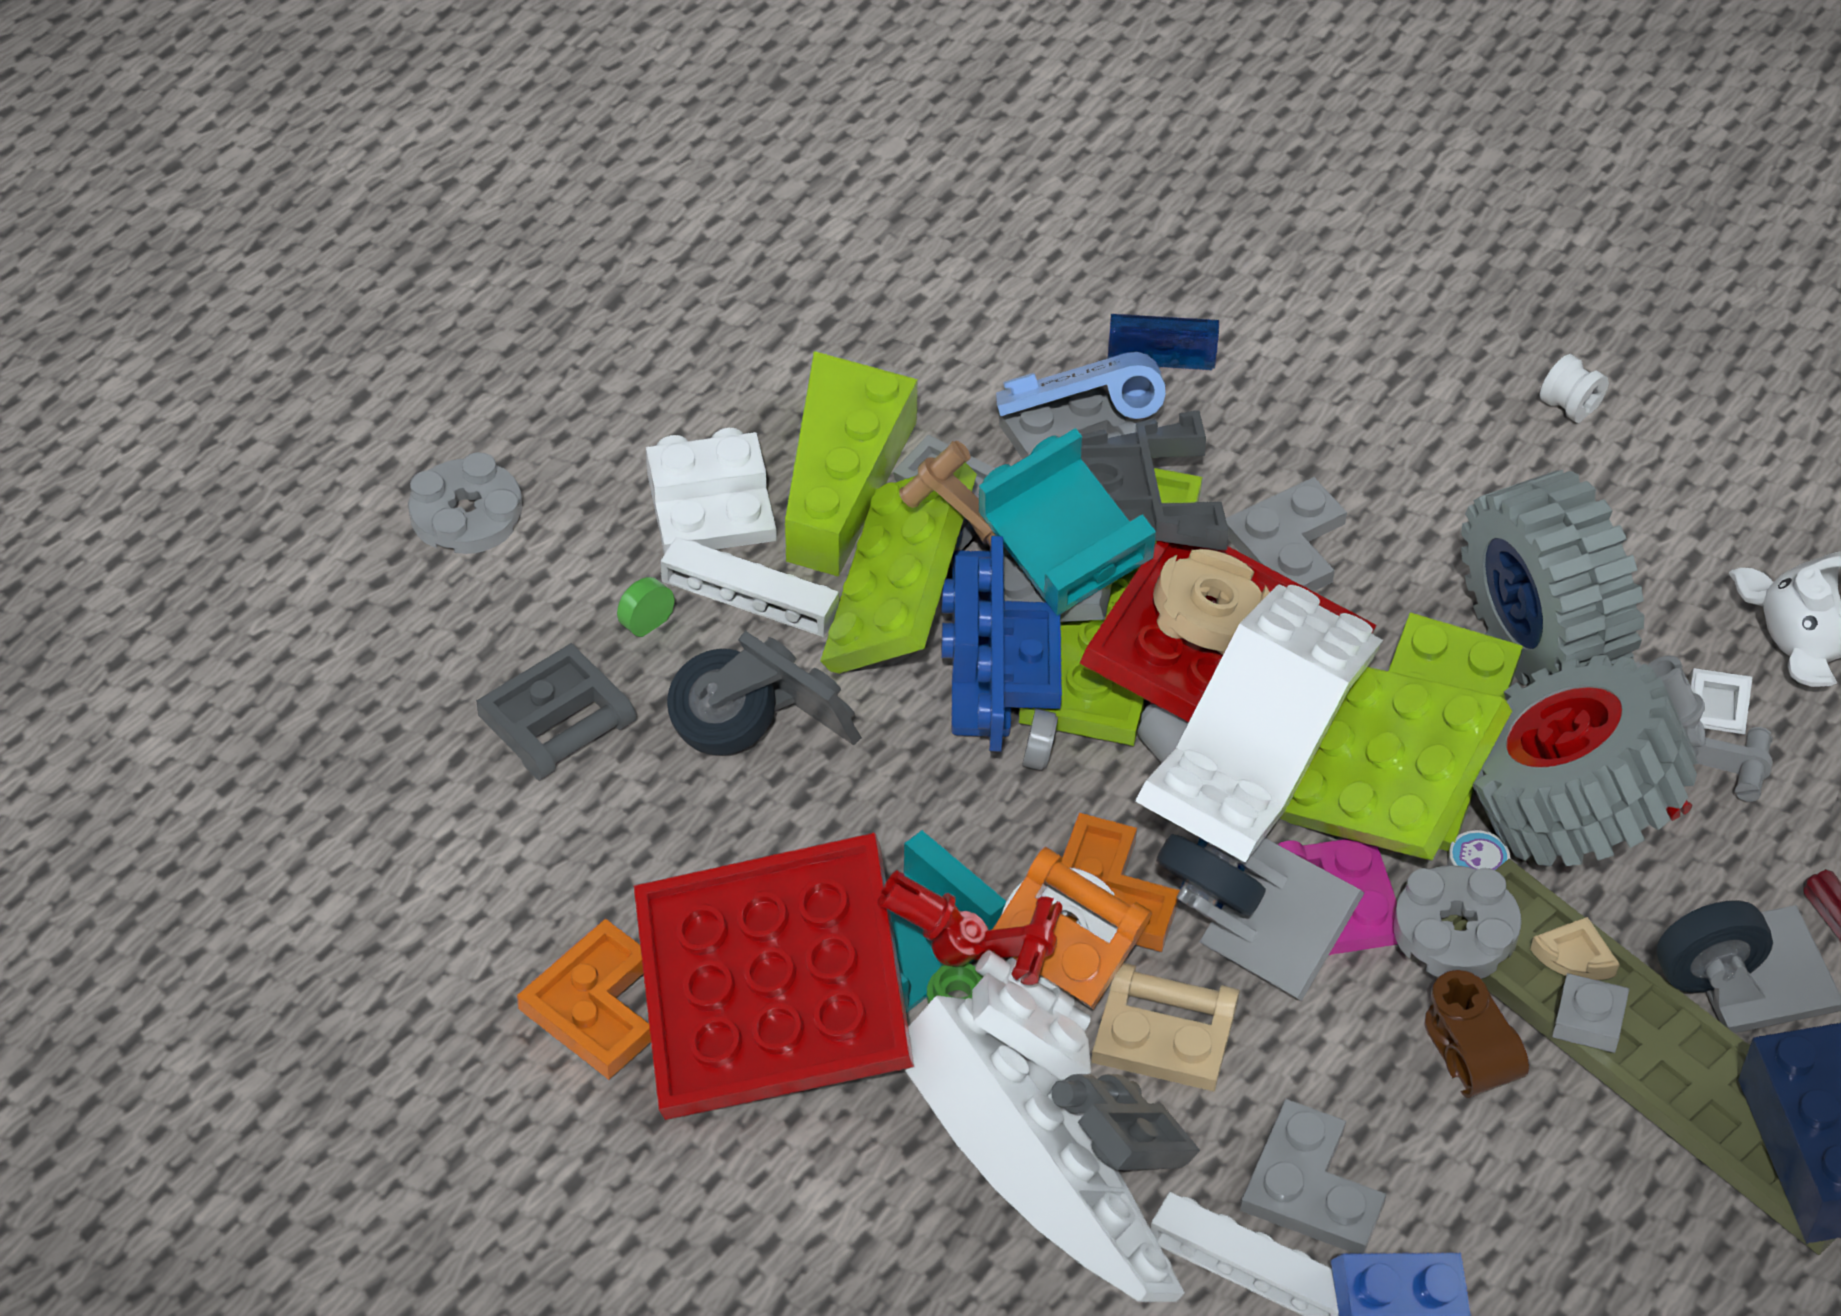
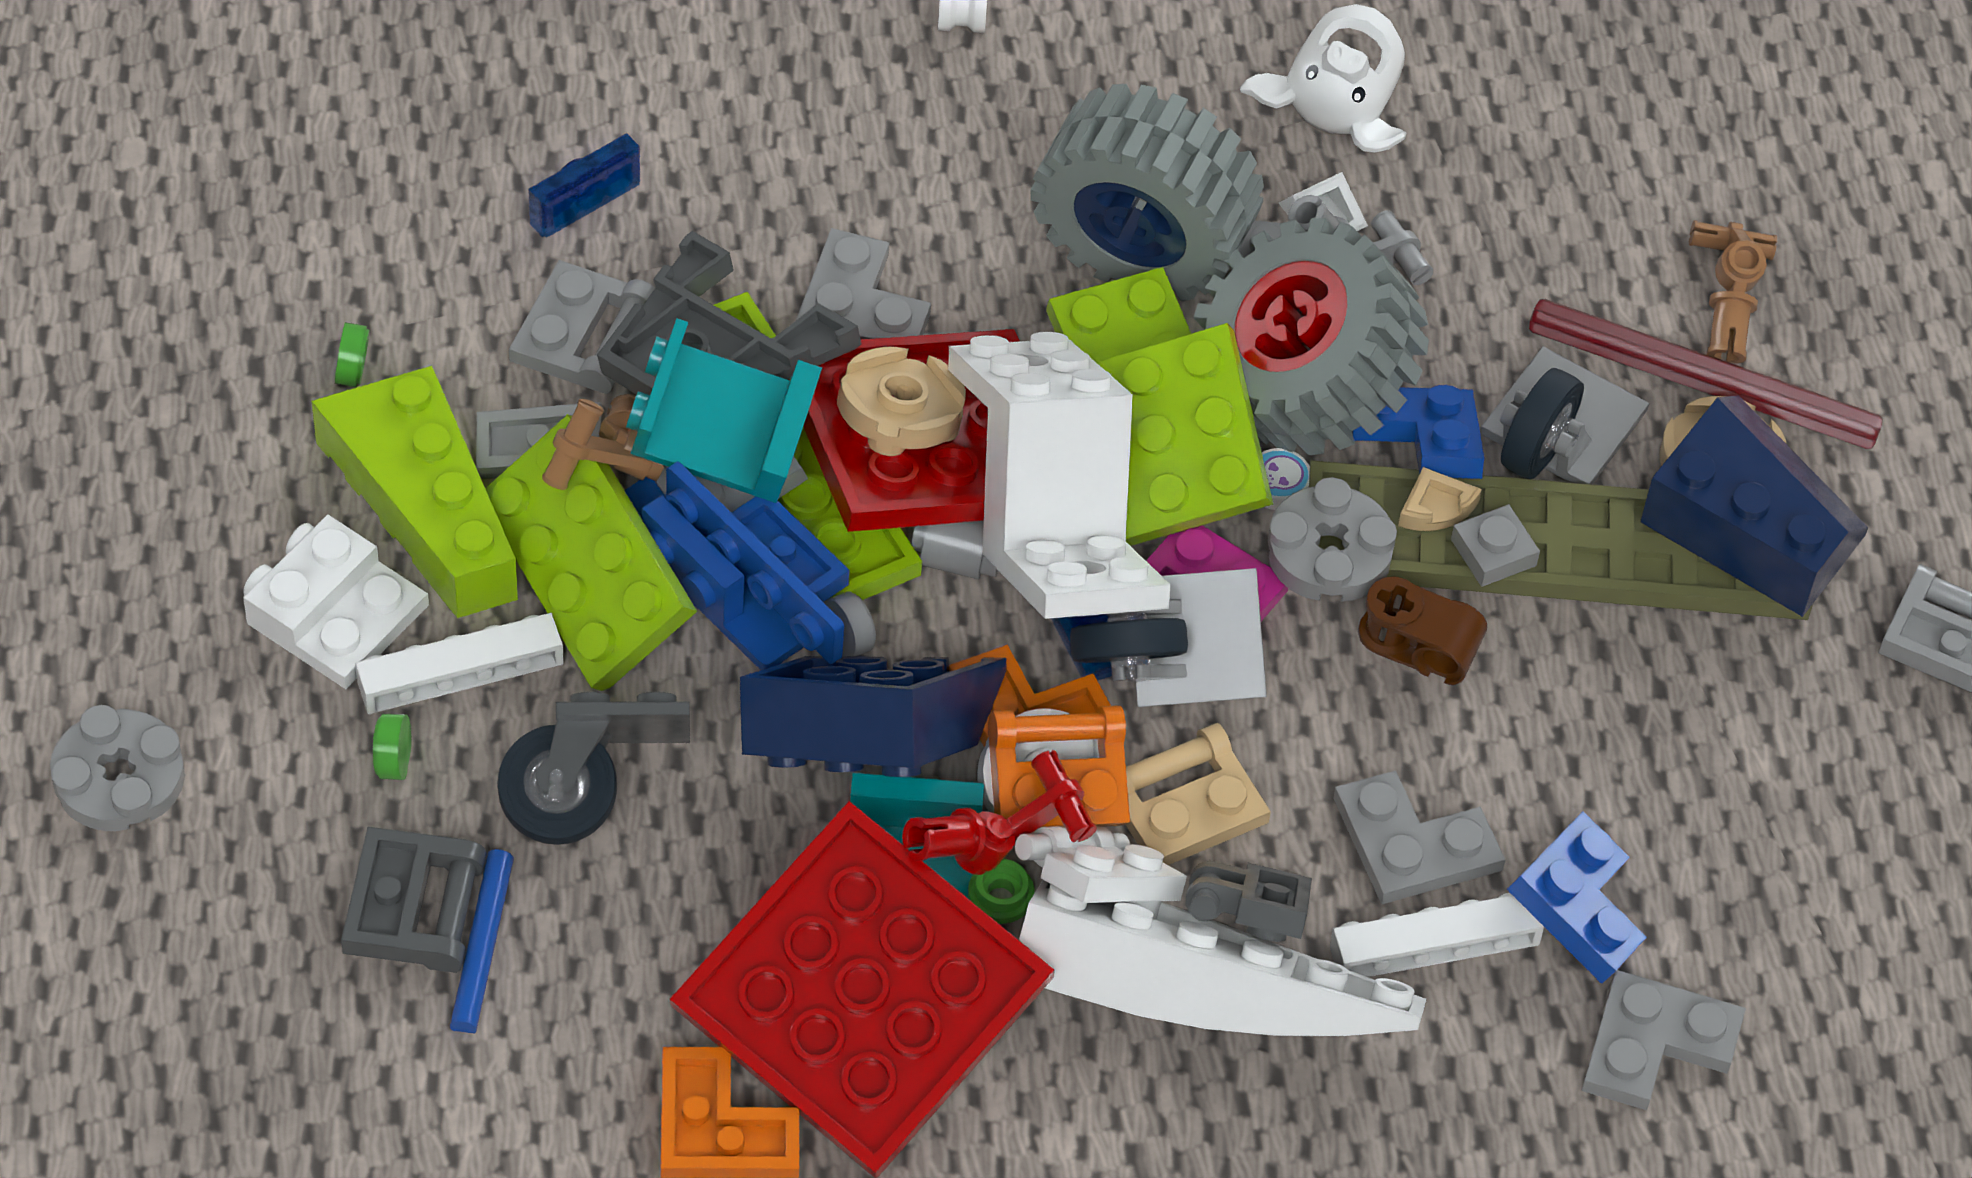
camera: 45 degrees left, 5 degrees up
(573, 771) = (482, 941): none -> blue bar
(889, 347) = (352, 354): none -> bright green tile
(980, 797) = (865, 712): none -> dark blue wedge
(1131, 379) = (590, 241): light blue door -> none
(1637, 901) = (1440, 424): none -> blue plate

